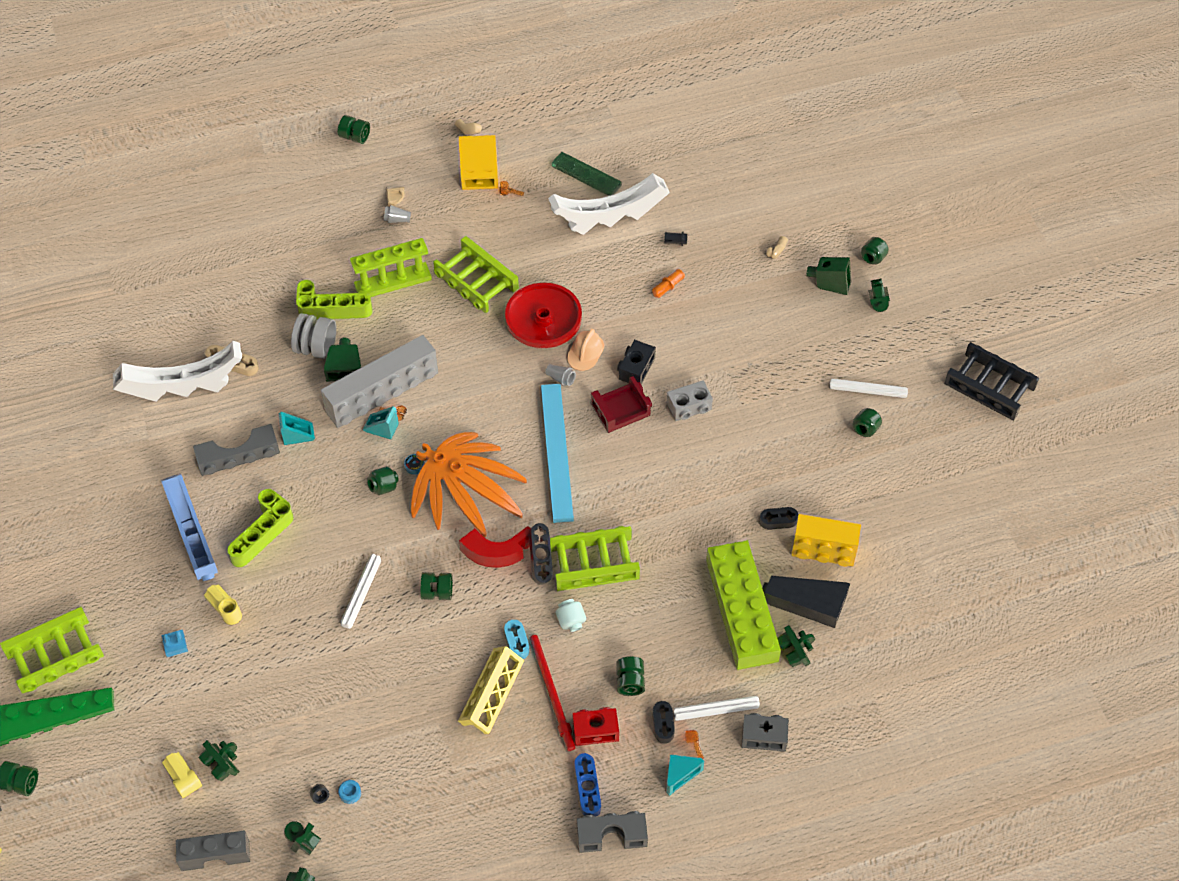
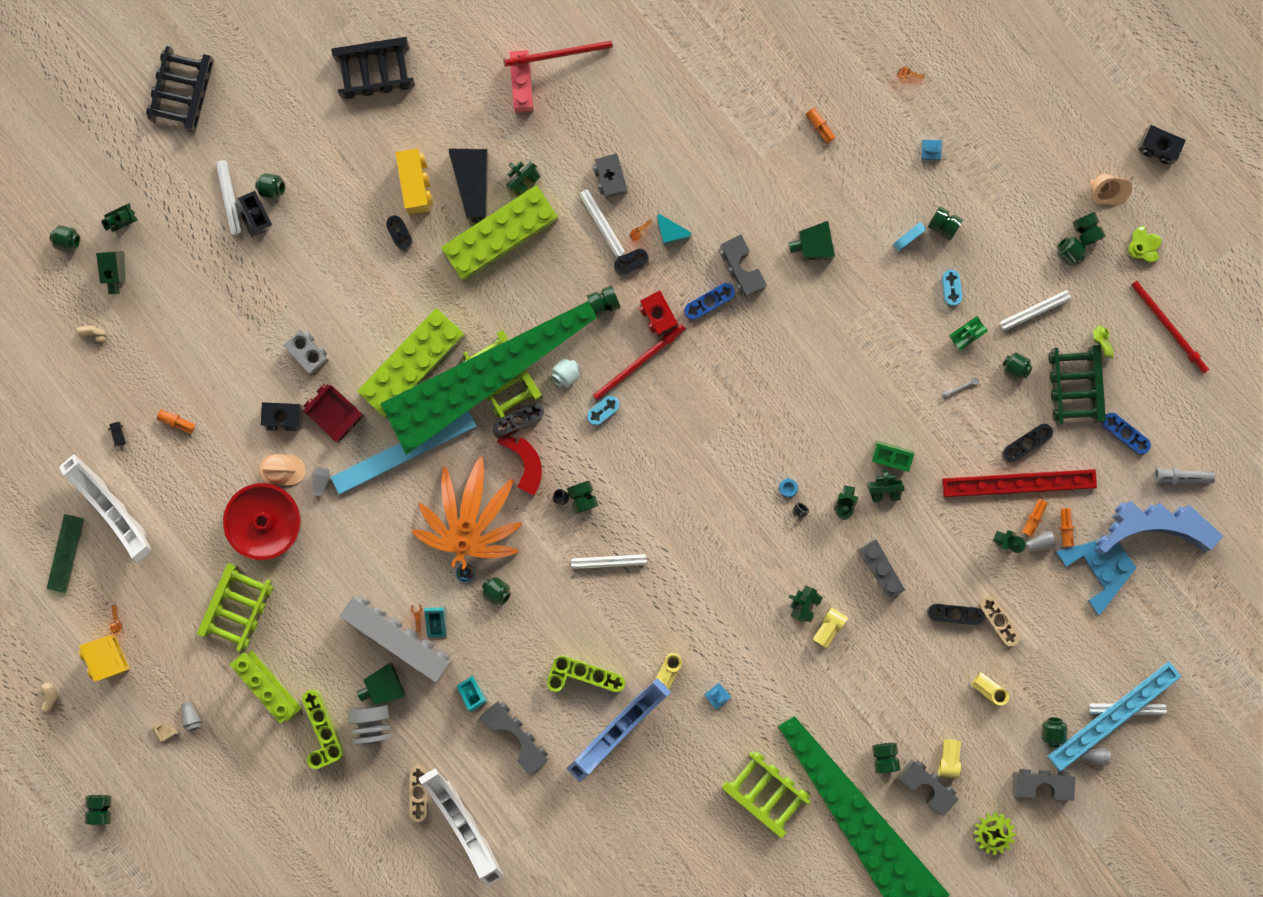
camera: 110 degrees left, 30 degrees up
(446, 567) = (560, 497): none -> black hinge
(484, 688) = (657, 415): light yellow fence -> none
(592, 495) = (447, 396): none -> green wing
(641, 483) = (412, 360): none -> lime brick
(843, 397) = (253, 214): none -> black brick
(915, 681) = (521, 85): none -> coral arch
(922, 678) = (524, 59): none -> red bar
(978, 560) = (380, 49): none -> black fence

